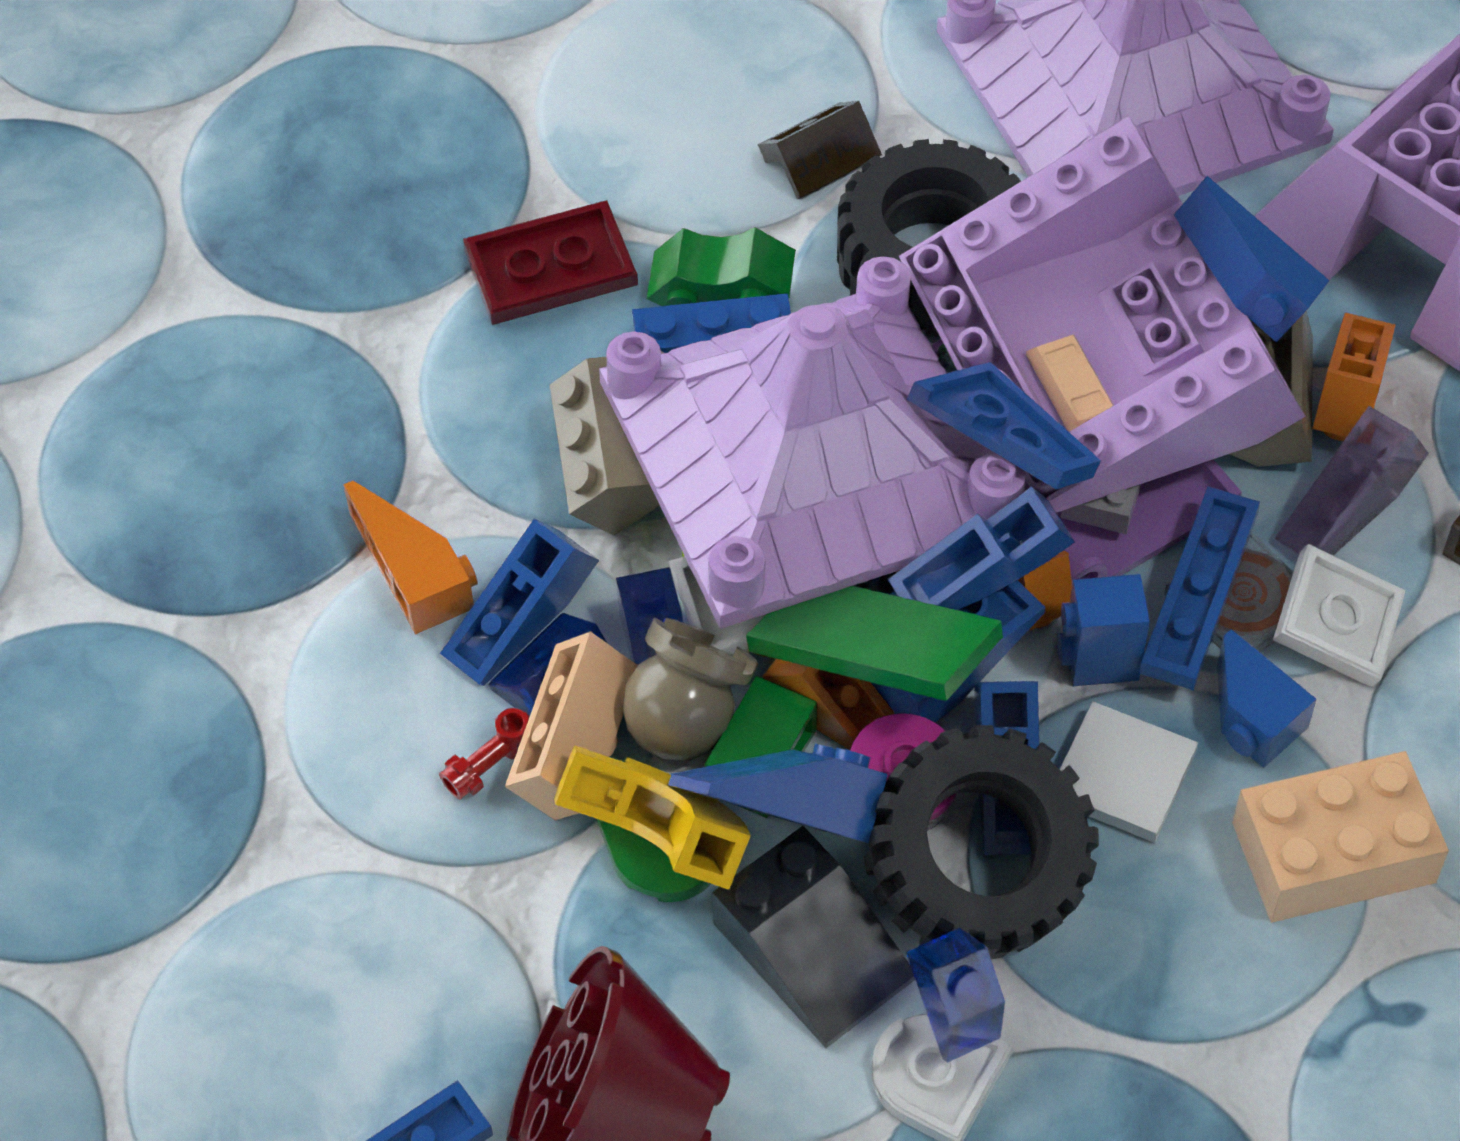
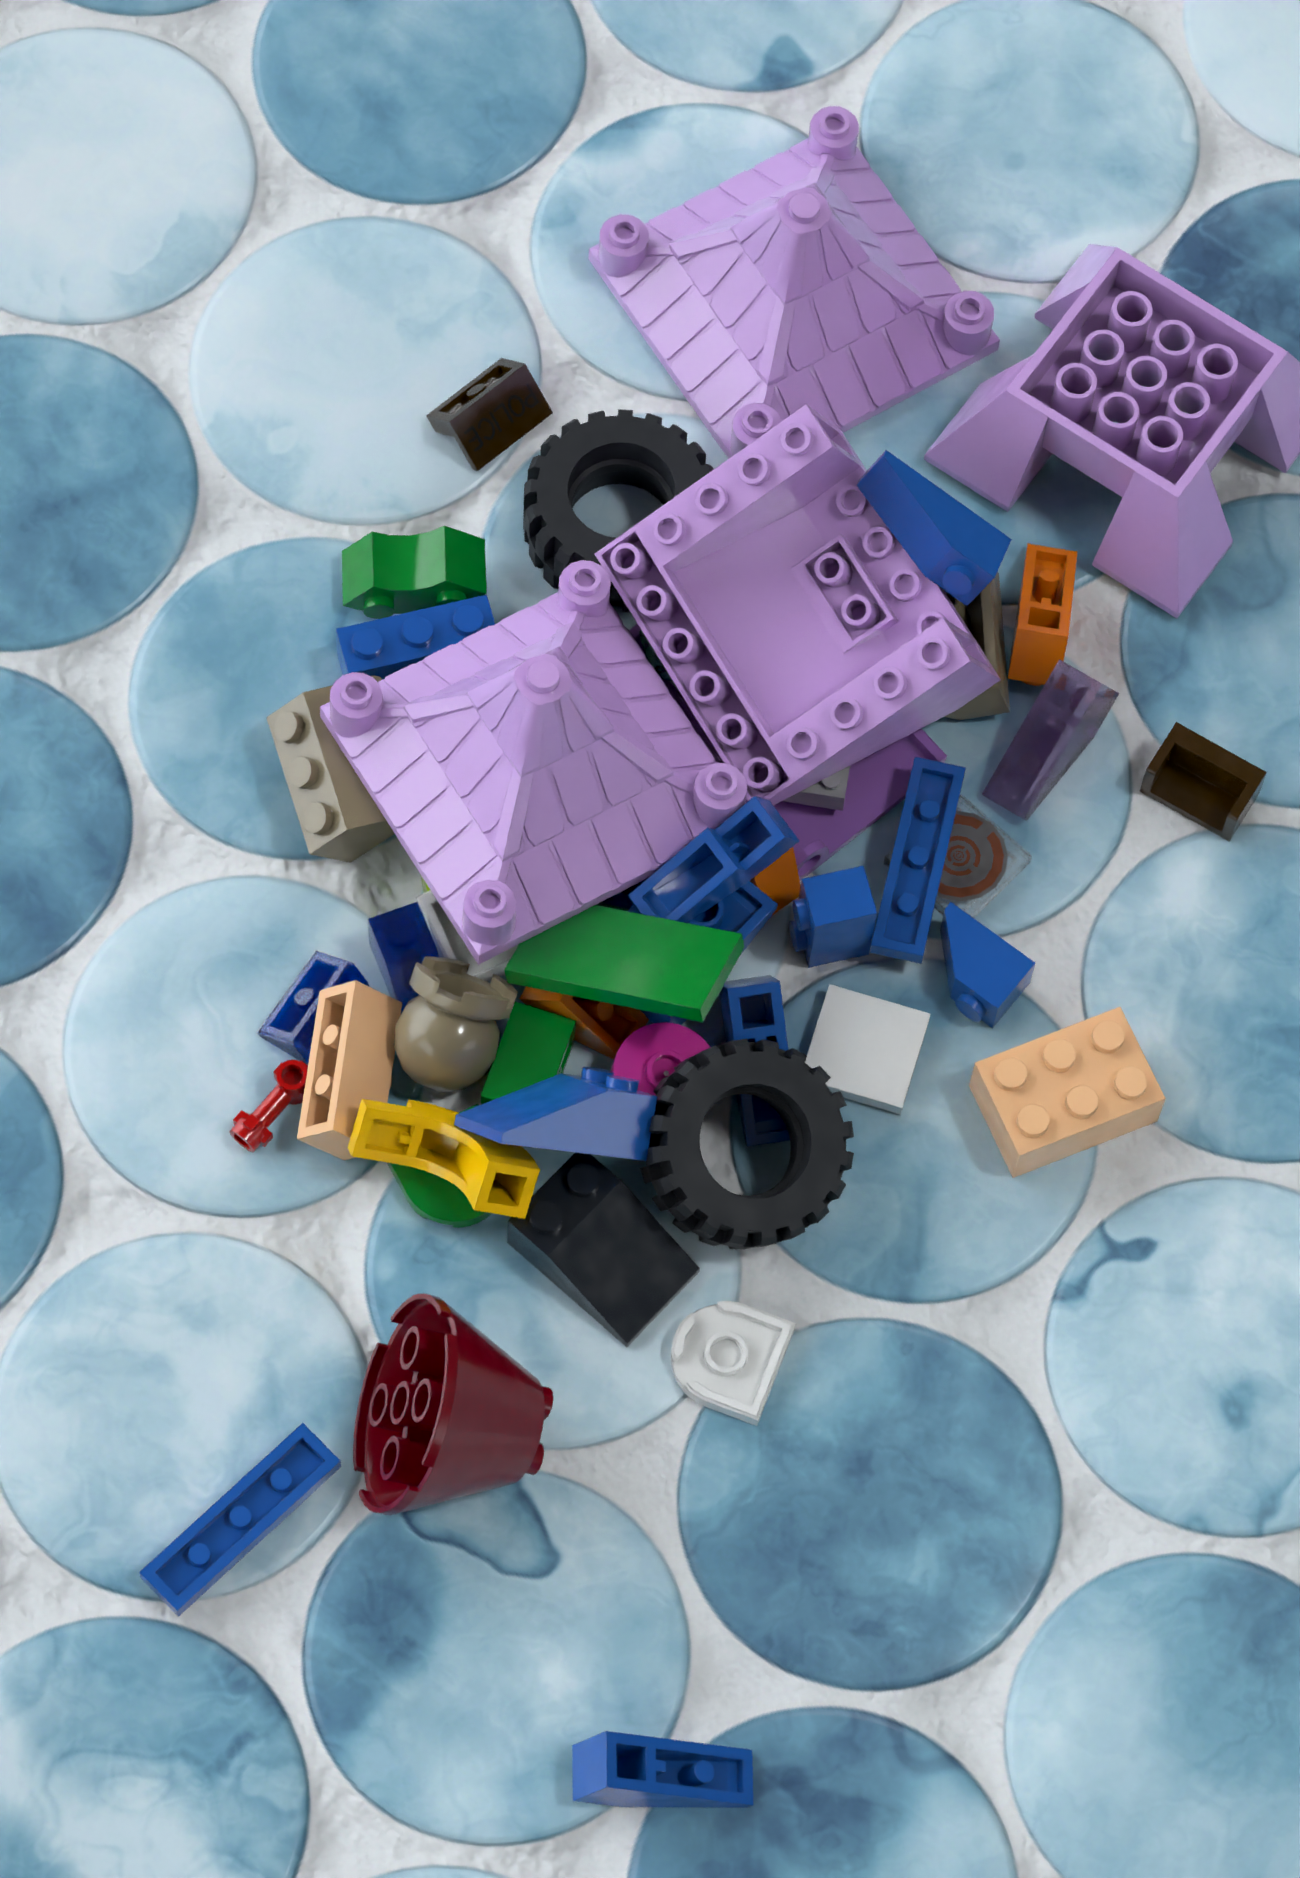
camera: 15 degrees left, 10 degrees up
(413, 559) = (164, 916): orange slope -> none
(519, 601) = (274, 948): blue slope -> none
(550, 262) = (237, 571): dark red tile -> none
(959, 992) = (743, 1288): clear blue slope -> none
(1006, 421) = (724, 731): blue wing -> none
(1069, 381) = (777, 671): light nougat tile -> none
(1339, 615) = (1049, 870): white tile -> none

